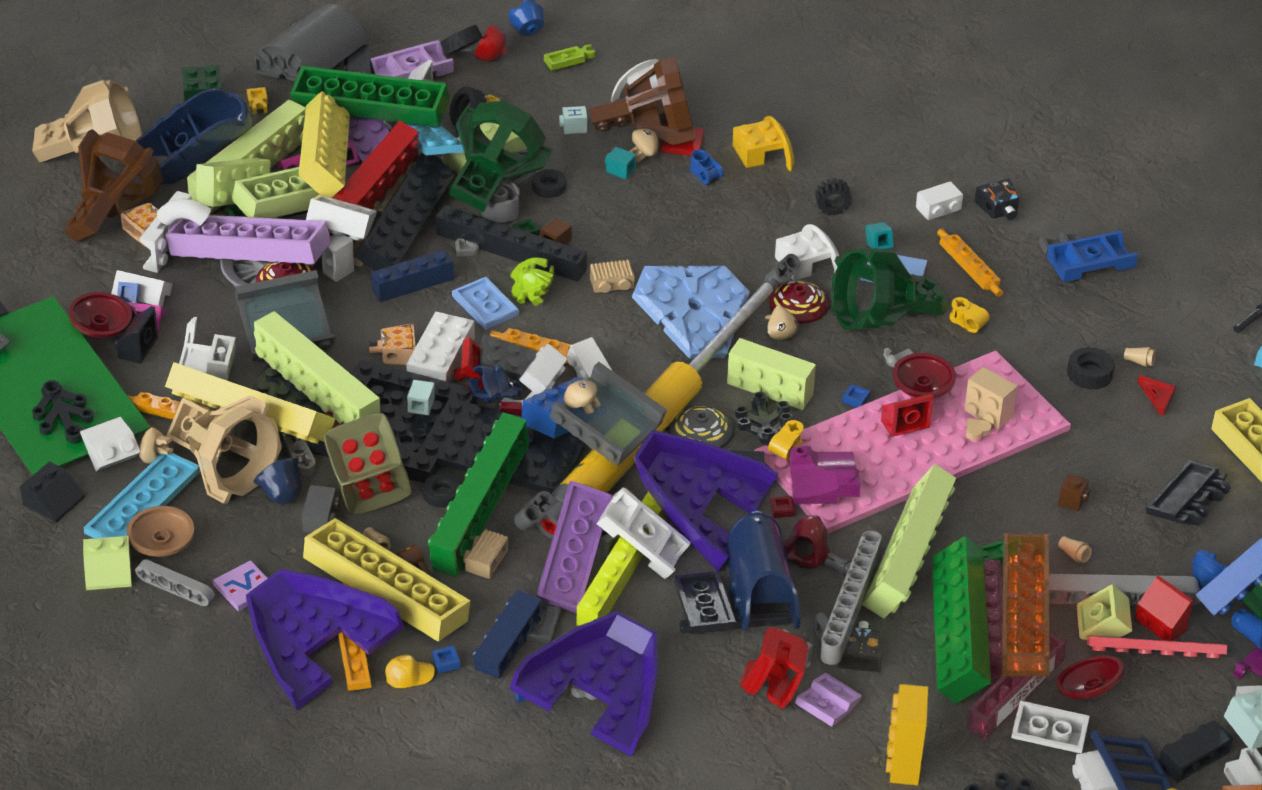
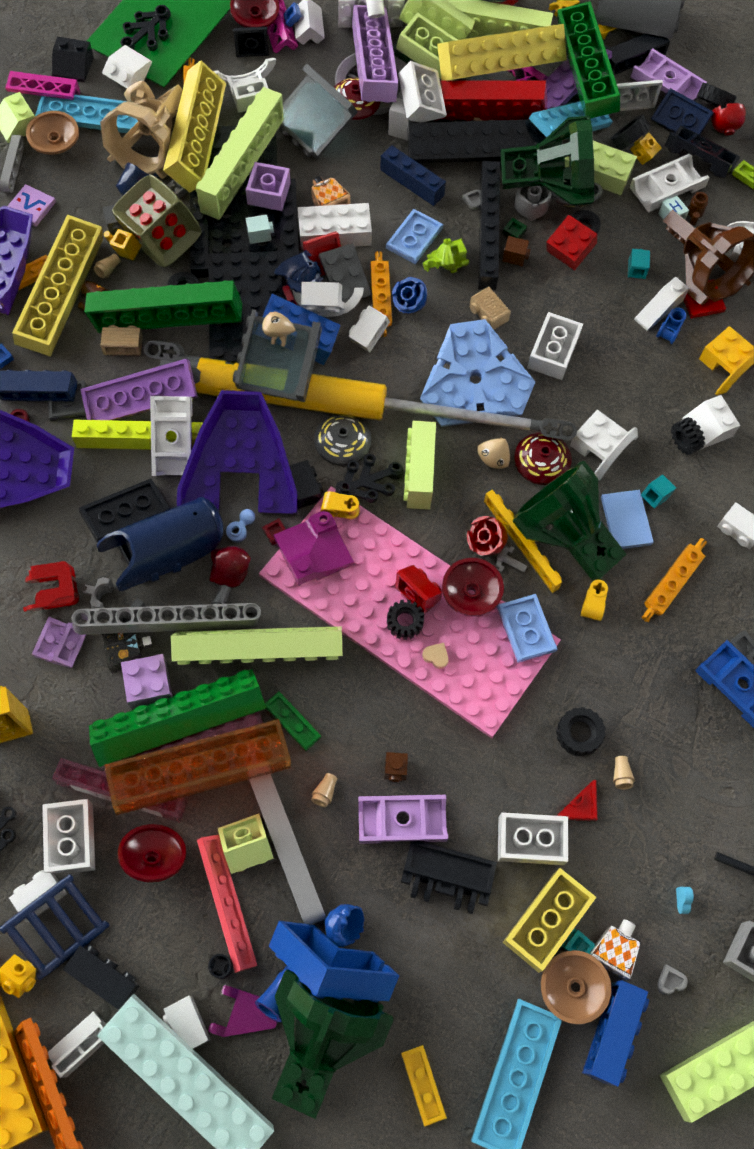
camera: 65 degrees right, 25 degrees up
(76, 521) = (42, 85): none -> dark pink fence
(362, 513) = (123, 243): none -> yellow brick
(375, 368) = (268, 186): none -> lavender brick
(466, 69) = (683, 111): none -> dark blue tile
(501, 79) = (722, 159): none -> black piece
(546, 116) = (654, 187): none -> white piece
(568, 320) = (409, 295): none -> blue cone
(572, 194) = (571, 242): none -> red brick
(578, 98) = (697, 207): none -> reddish brown piece
(646, 143) = (671, 268): tan piece -> none
(675, 163) = (665, 300): none -> white slope
(684, 243) = (554, 346): none -> white brick
(820, 170) = (715, 420): none -> white slope
(855, 396) = (438, 542): blue plate -> none
(872, 354) = (487, 536): none -> red cylinder
(882, 339) = (527, 547): none -> yellow plate
(907, 639) = (146, 680): none -> lavender brick
(931, 427) = (405, 631): none -> black tyre
(970, 359) = (526, 628): none -> light blue tile
(990, 397) = (467, 652): tan brick -> none
(1120, 518) = (380, 824): none -> lavender piece
(1164, 610) = (264, 896): slope -> none
(1179, 426) = (533, 839): none -> white brick
(1215, 665) = (218, 963): none -> black wheel

